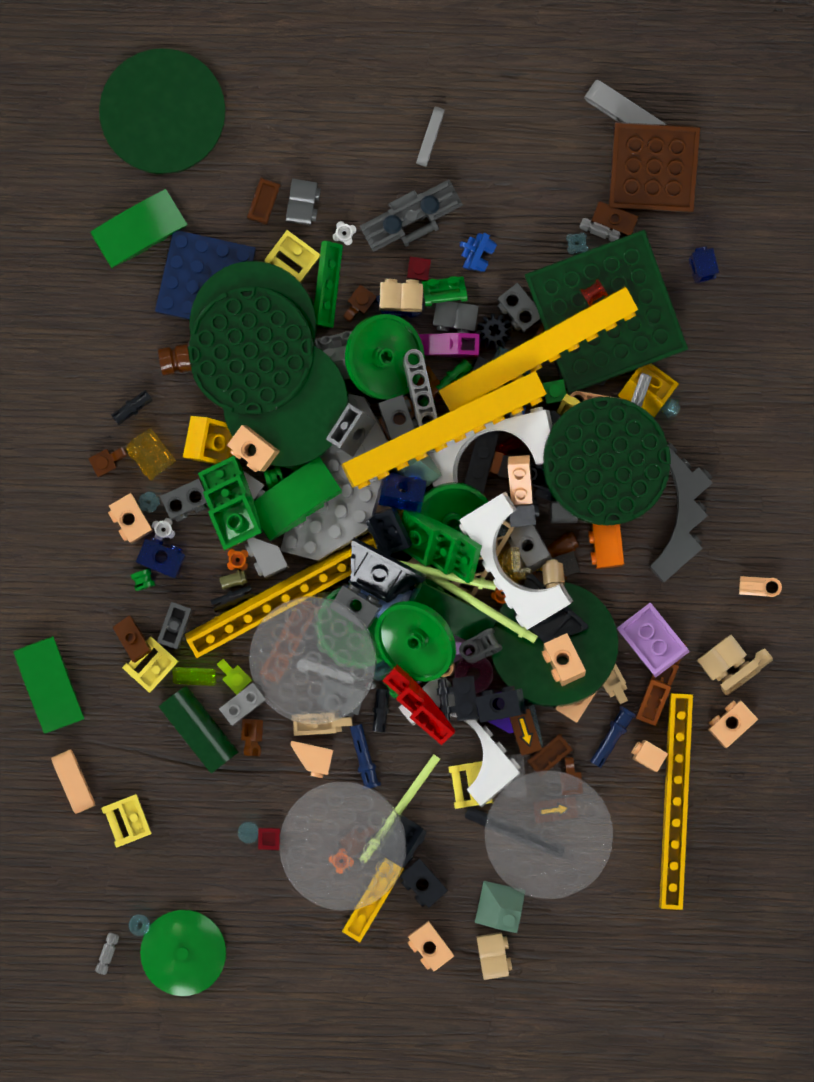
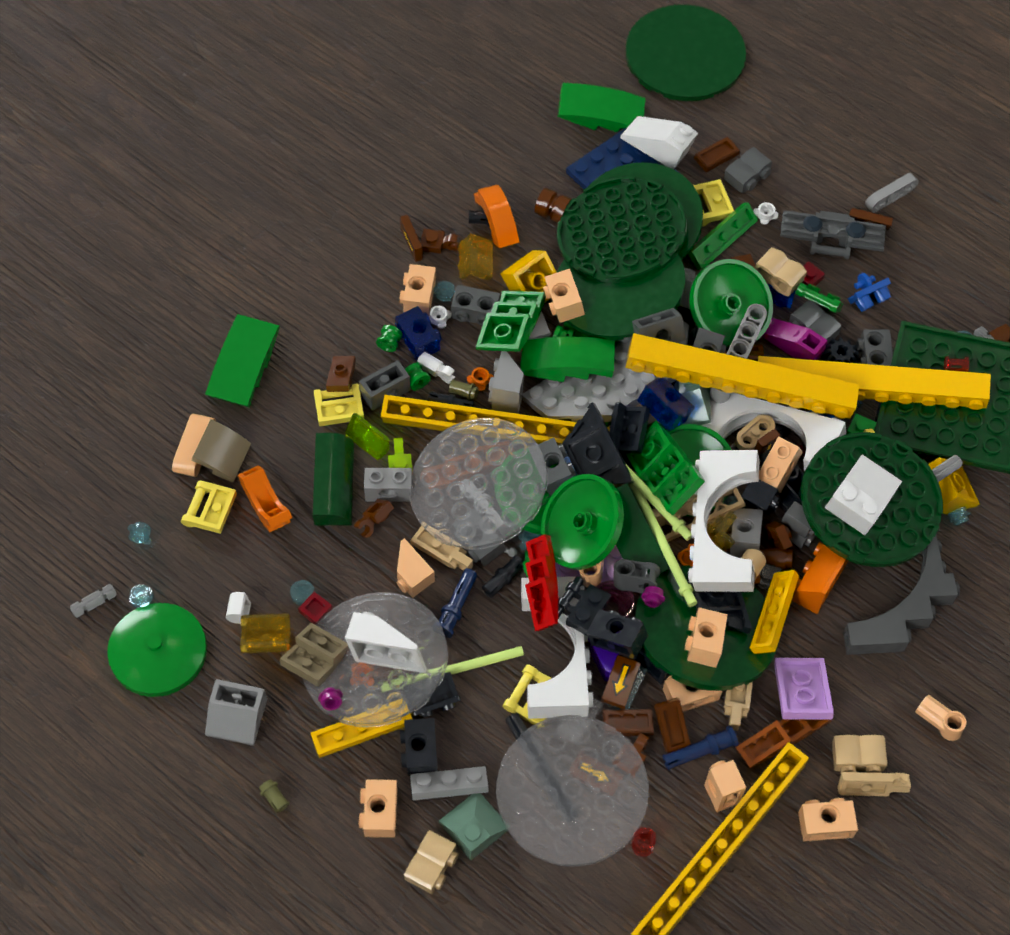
camera: 35 degrees right, 25 degrees down
(86, 475) = (411, 238): none -> reddish brown tile
(96, 880) = (139, 533): none -> clear light blue plate
(99, 772) = (221, 450): none -> dark tan slope
(137, 404) = (498, 214): none -> orange arch
(165, 787) = (264, 499): none -> orange arch
(189, 597) = (418, 377): none -> green wheel
(196, 576) = (435, 367): none -> white bar
(211, 229) = (660, 139): none -> white slope
(215, 880) = (237, 606): none -> white brick
(251, 885) = (265, 633): none -> clear yellow bracket
(279, 958) = (235, 712): none -> light grey slope
(299, 875) = (314, 654): none -> dark tan slope
(338, 841) = (380, 644): none -> white slope
(339, 901) = (330, 698): none -> magenta plate
(353, 992) = (273, 795): none -> olive pin
(431, 178) = (865, 216): none -> reddish brown plate
(462, 892) = (449, 783): none -> light grey plate
(480, 456) = (752, 432): none -> tan plate
(504, 655) = (653, 596): none -> magenta plate
(555, 530) = (778, 534): none -> reddish brown plate
(582, 736) = (672, 725): none -> reddish brown tile
(594, 598) = (774, 612): none -> yellow plate
(601, 466) = (863, 494): none -> white slope
(618, 828) = (642, 834): none -> clear red bush

